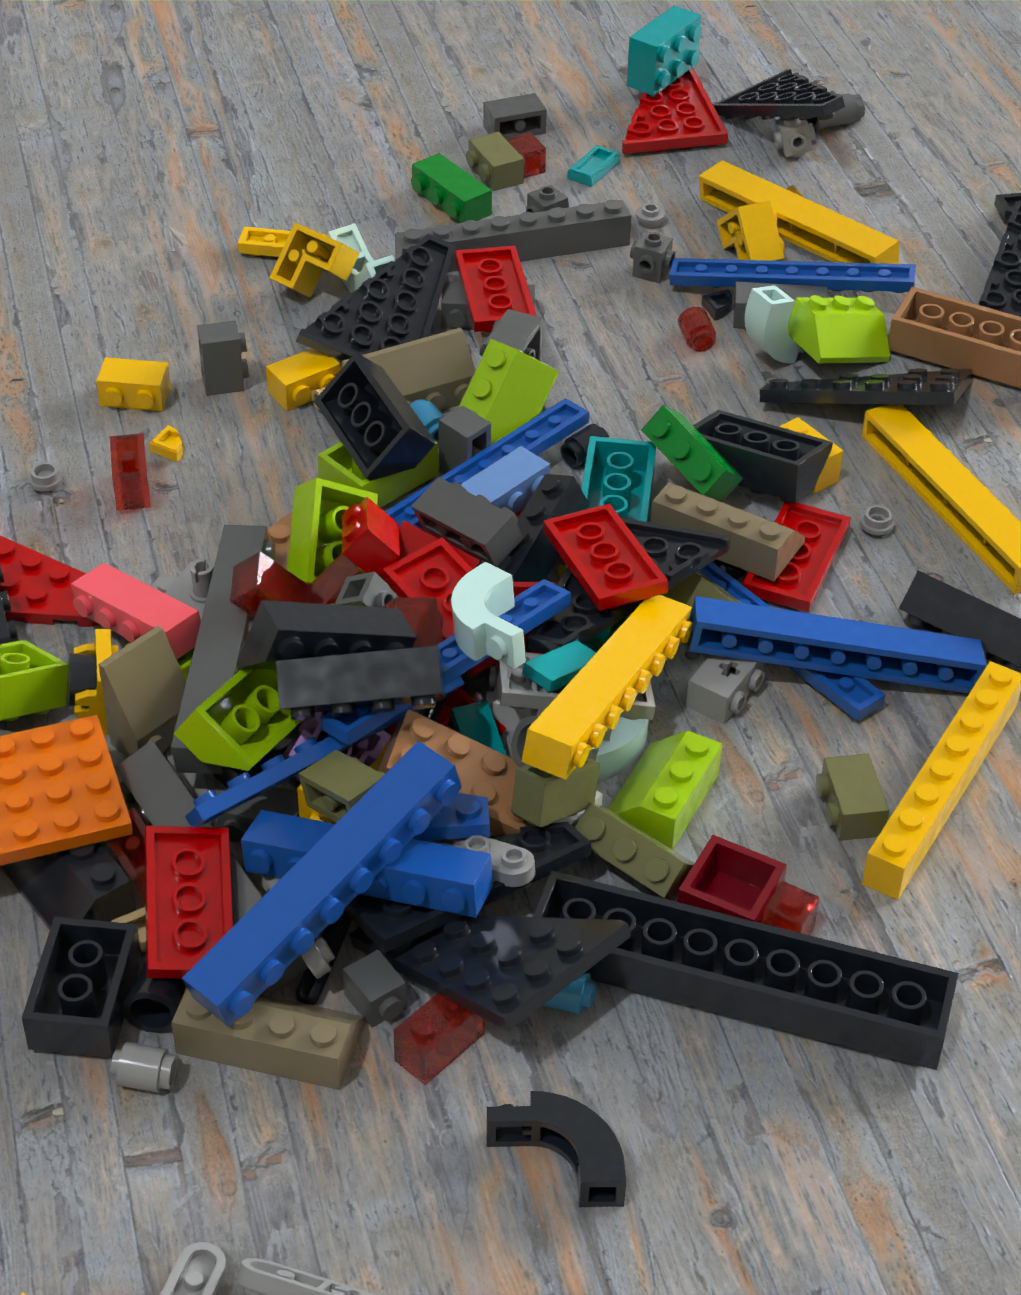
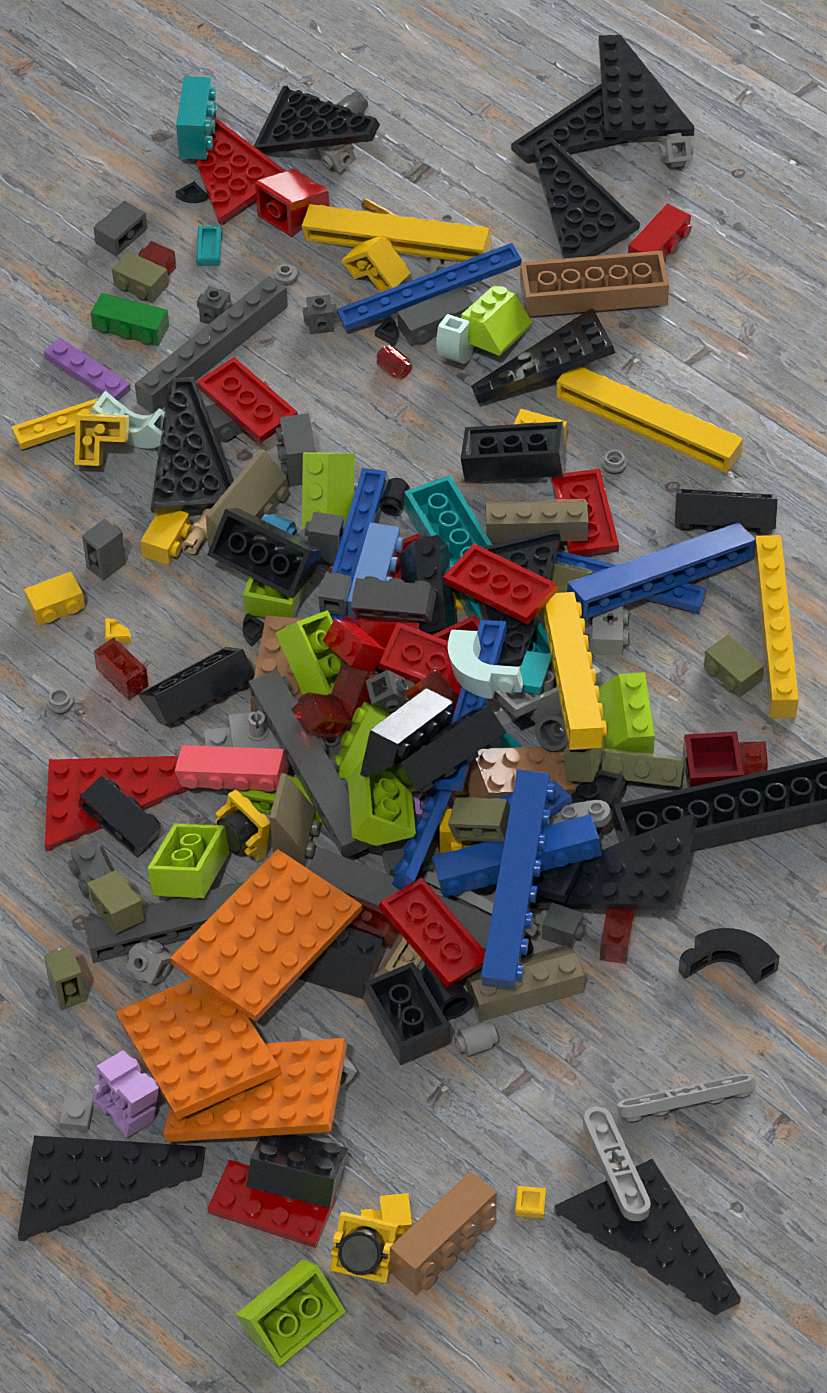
camera: 30 degrees left, 10 degrees up
(186, 524) = (198, 685): none -> black slope
(369, 215) = (86, 369): none -> medium lavender plate
(407, 489) = (334, 593): none -> dark grey brick
(615, 120) = (191, 193): none -> black tile
(691, 454) = (480, 474): green brick -> none
(702, 144) = (285, 199): none -> red slope

